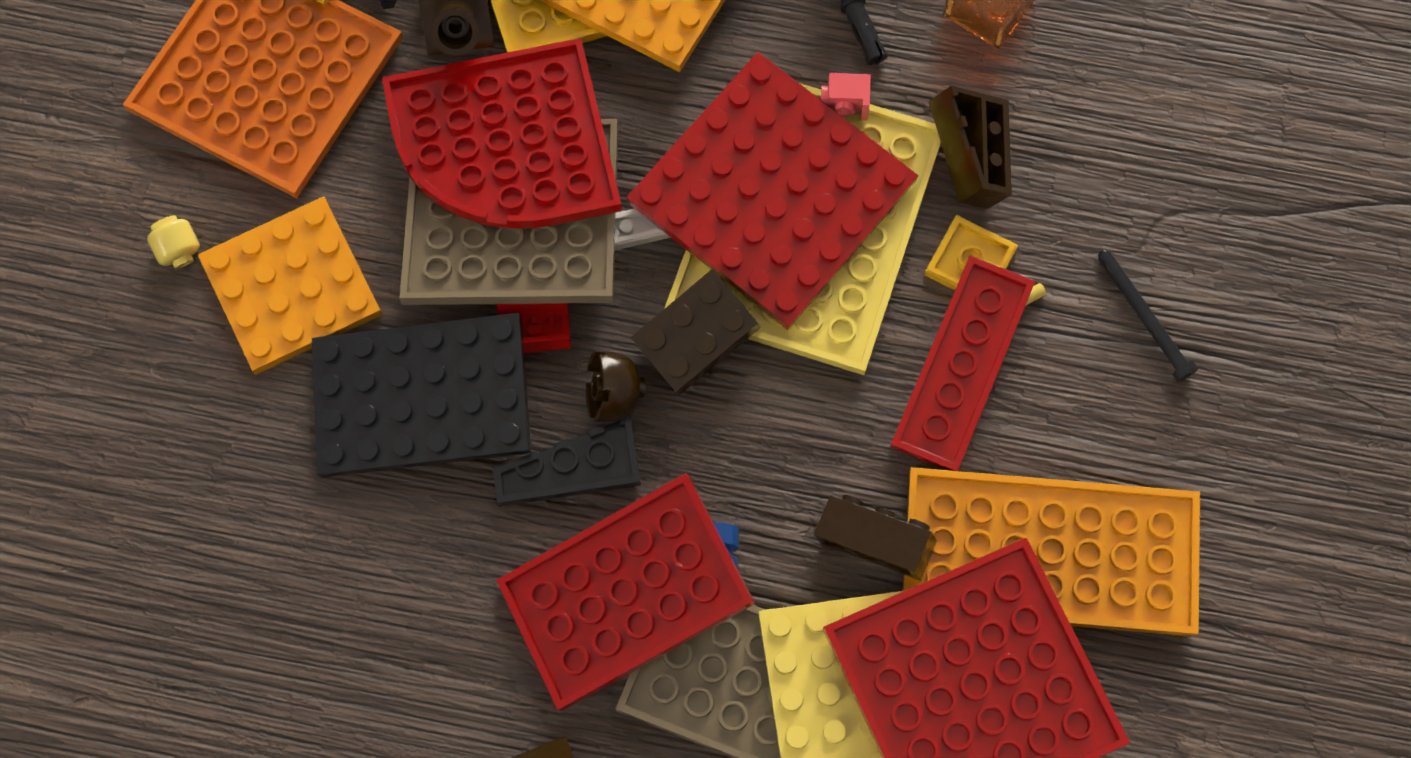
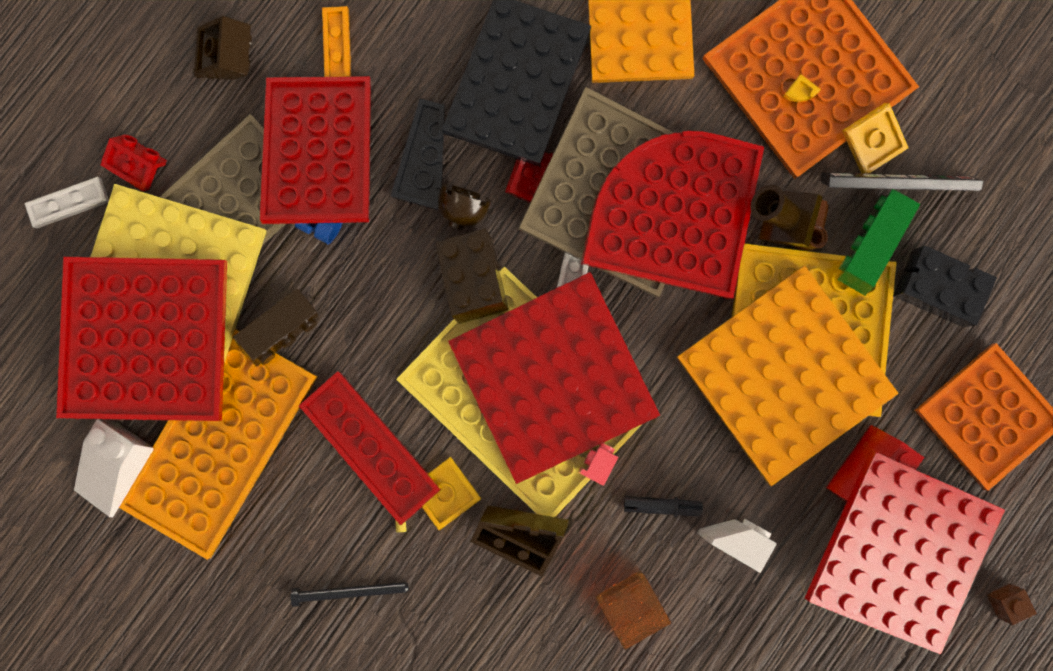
camera: 110 degrees right, 15 degrees up
(292, 67) = (801, 90): none -> yellow tile
(469, 648) = (336, 41): none -> light orange tile
(1156, 665) = (109, 465): none -> white slope

